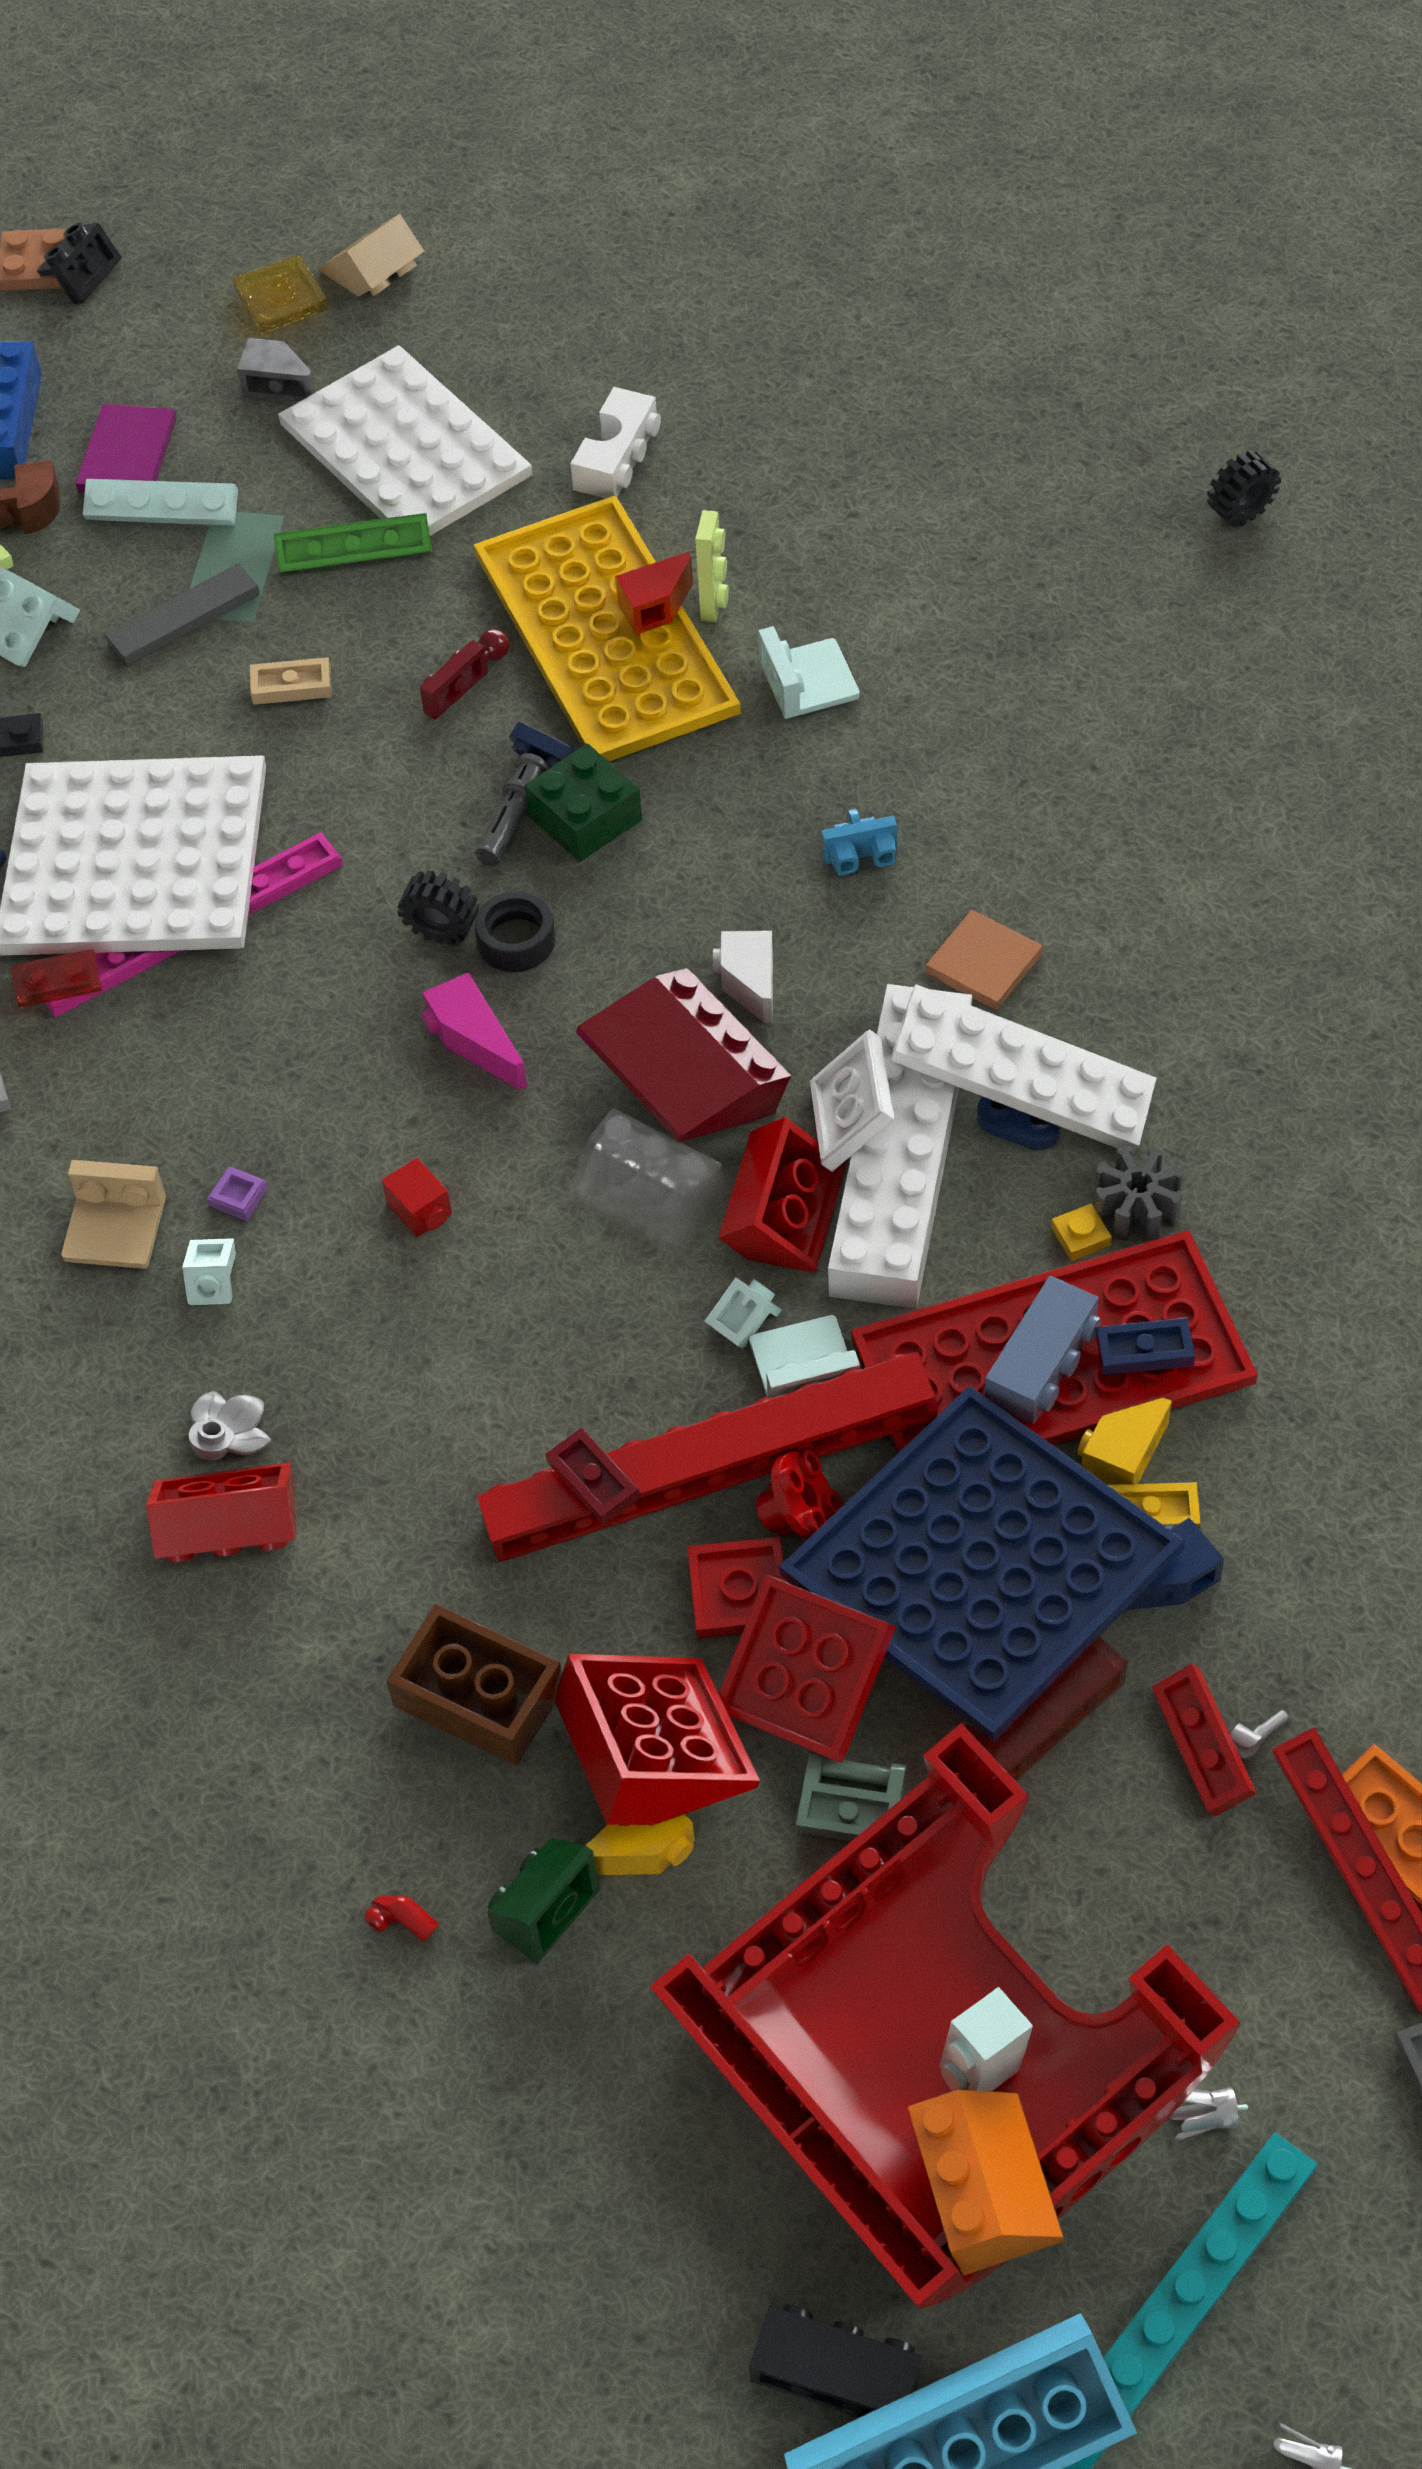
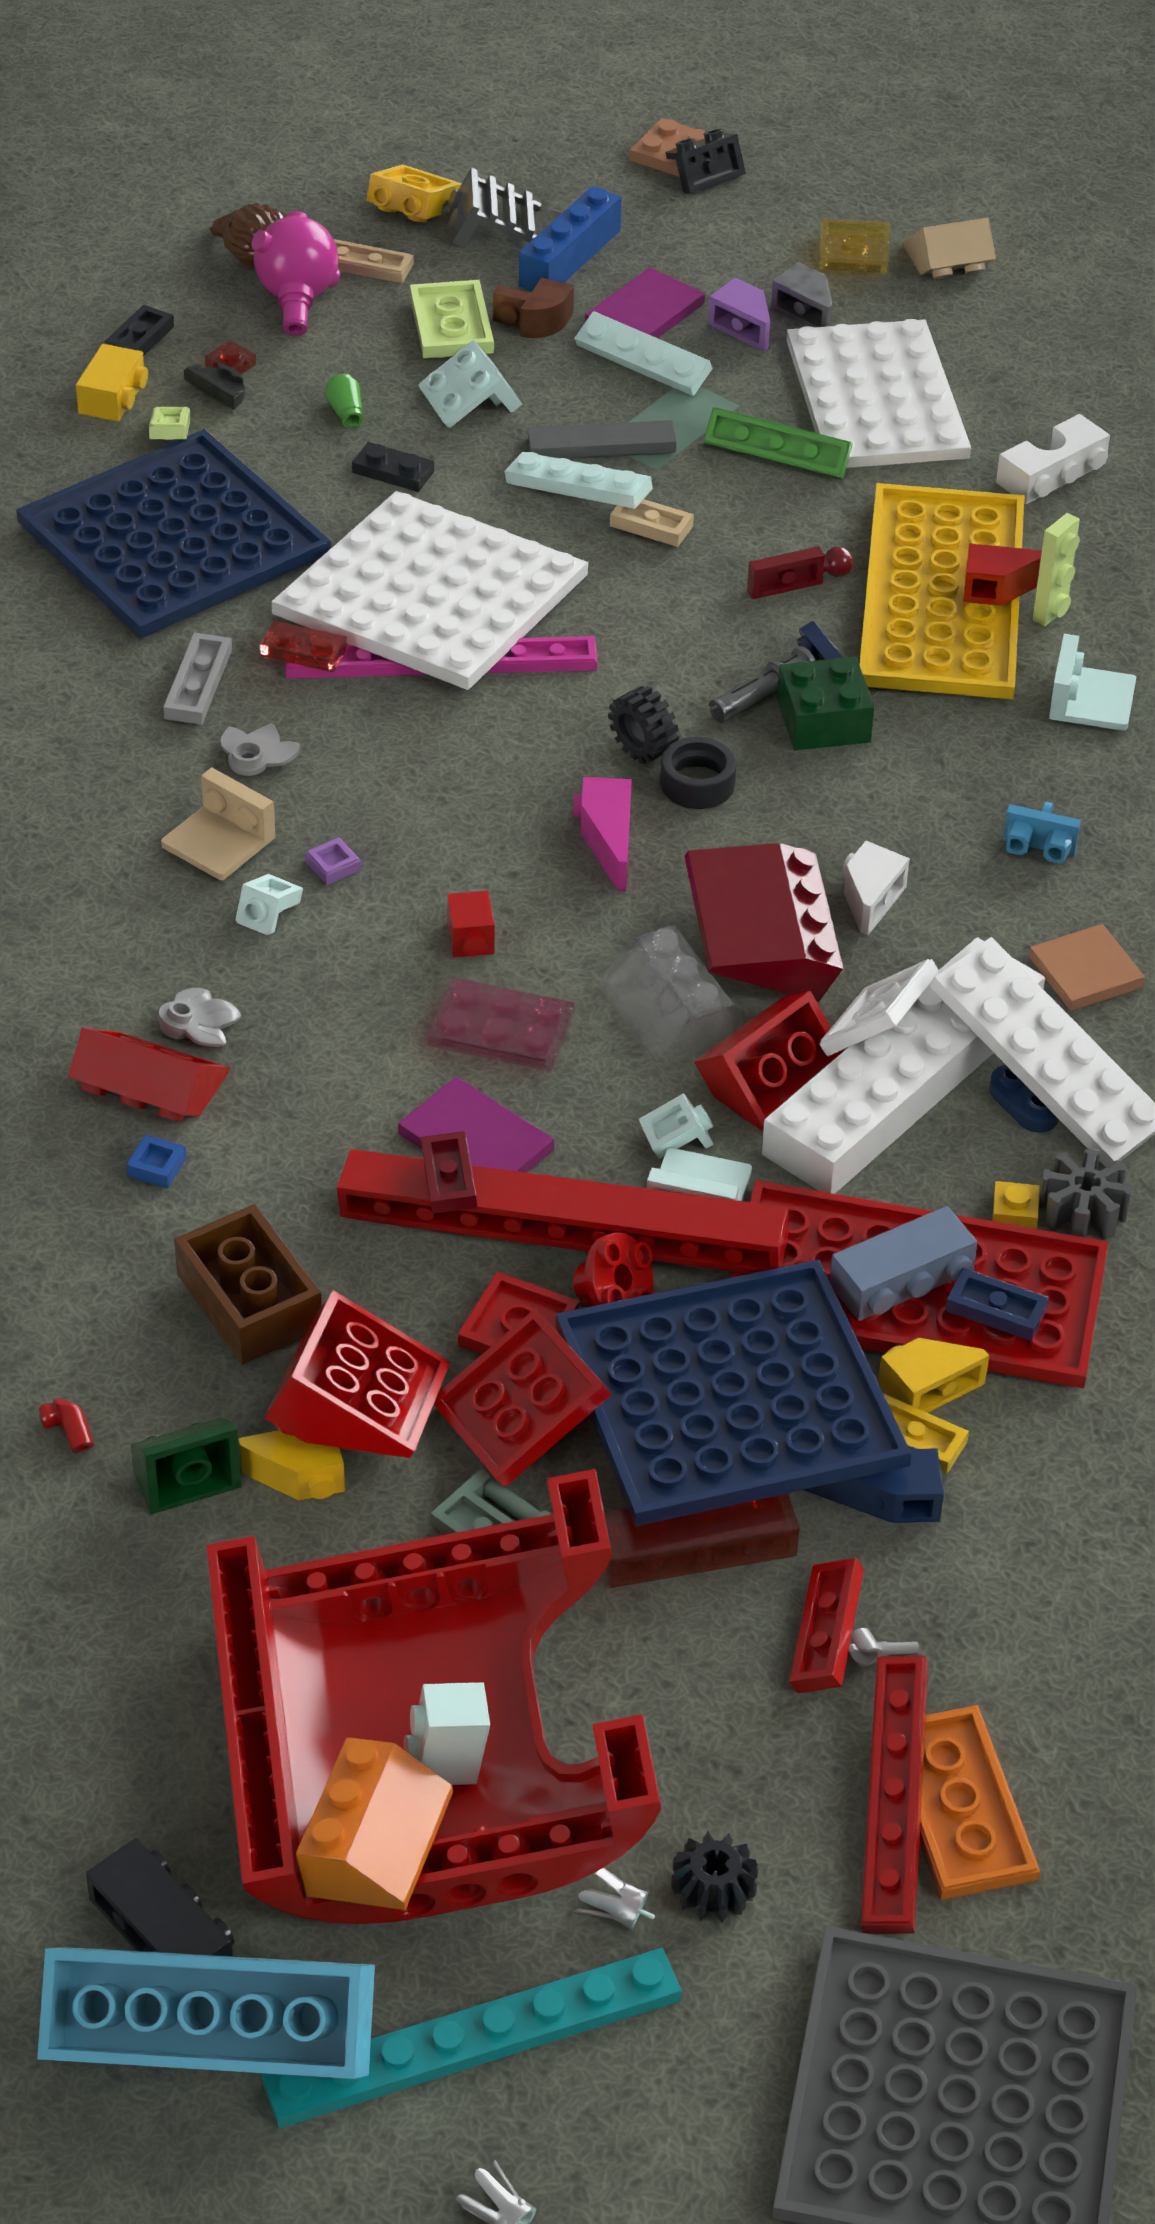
camera: 25 degrees right, 10 degrees down
(83, 1106) = (256, 751): none -> light grey plate
(194, 670) = (578, 479): none -> light aqua plate
(227, 416) = (741, 312): none -> medium lavender slope
(295, 1600) = (156, 1161): none -> blue plate
(511, 1285) = (501, 1024): none -> clear pink plate
(549, 1405) = (492, 1132): none -> magenta tile
(1294, 2043) = (714, 1876): none -> black gear

